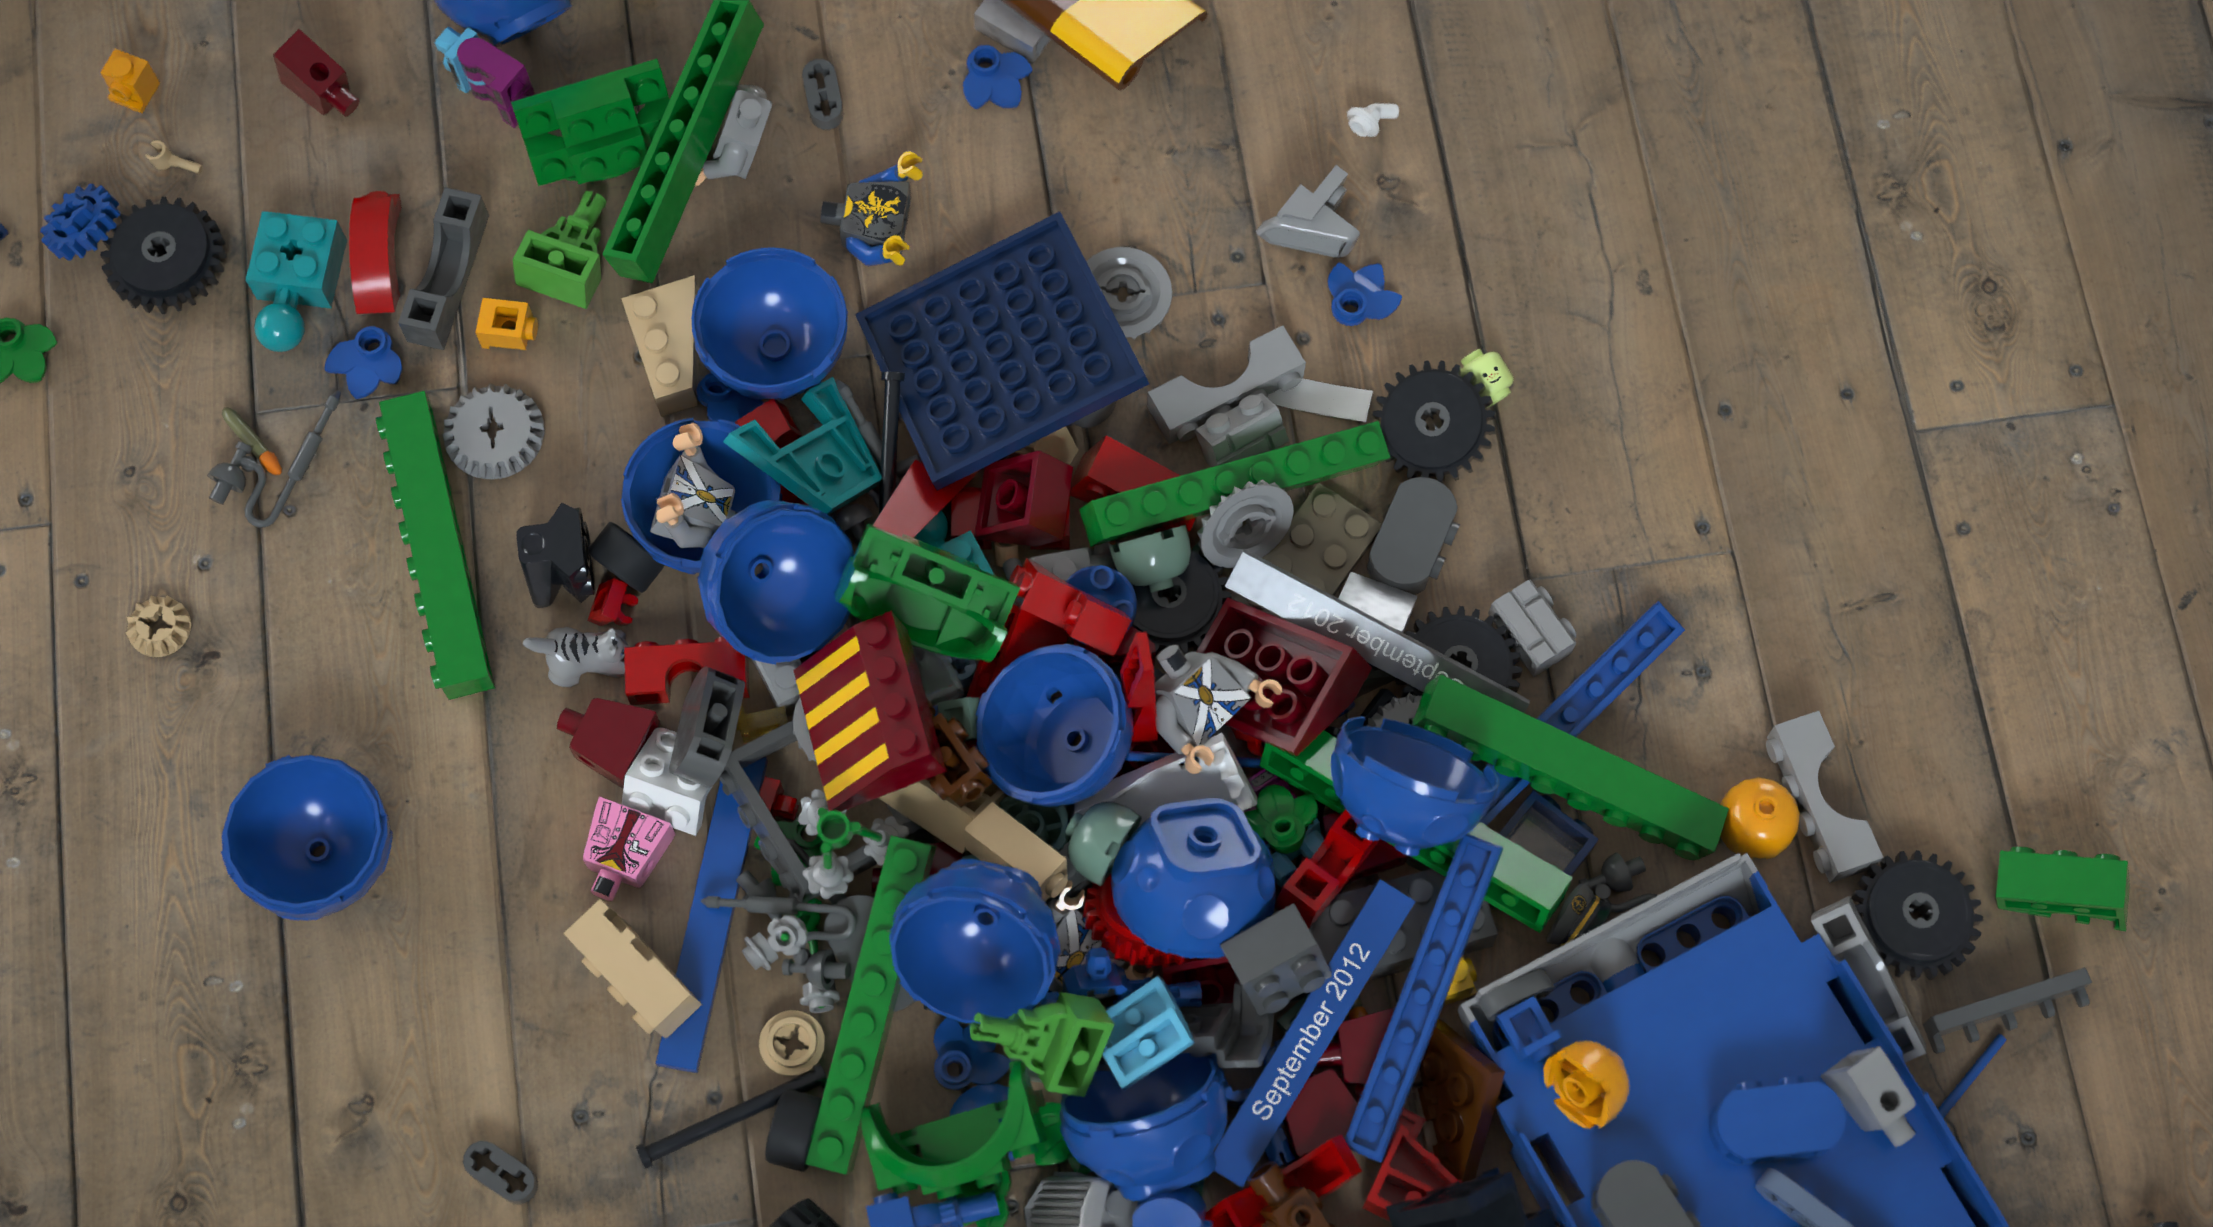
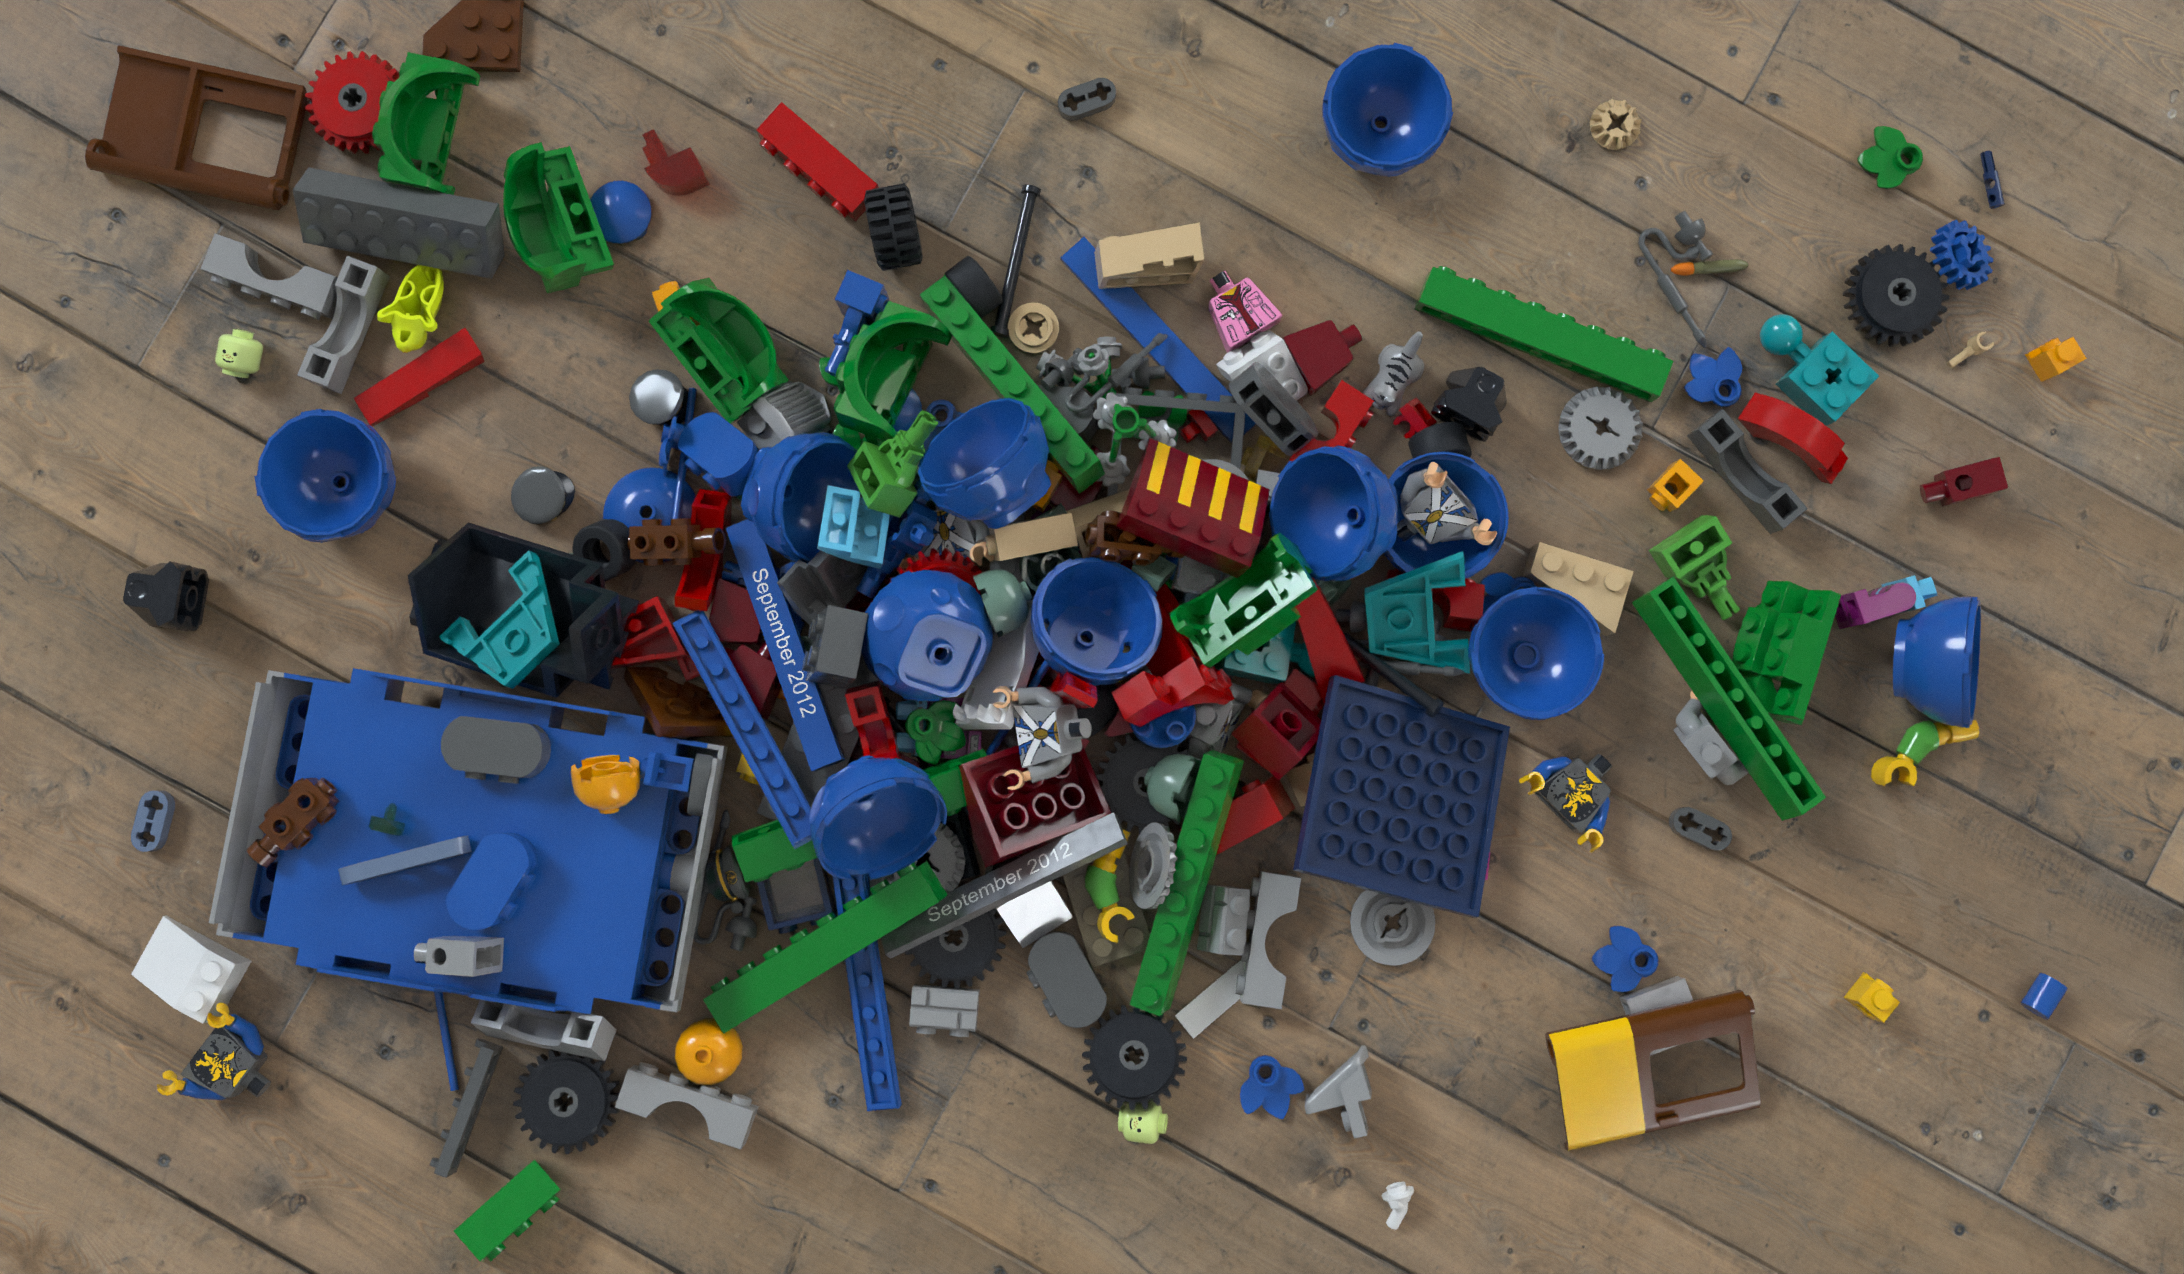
camera: 125 degrees right, 15 degrees up
(1308, 550) = (1103, 890): none -> piece

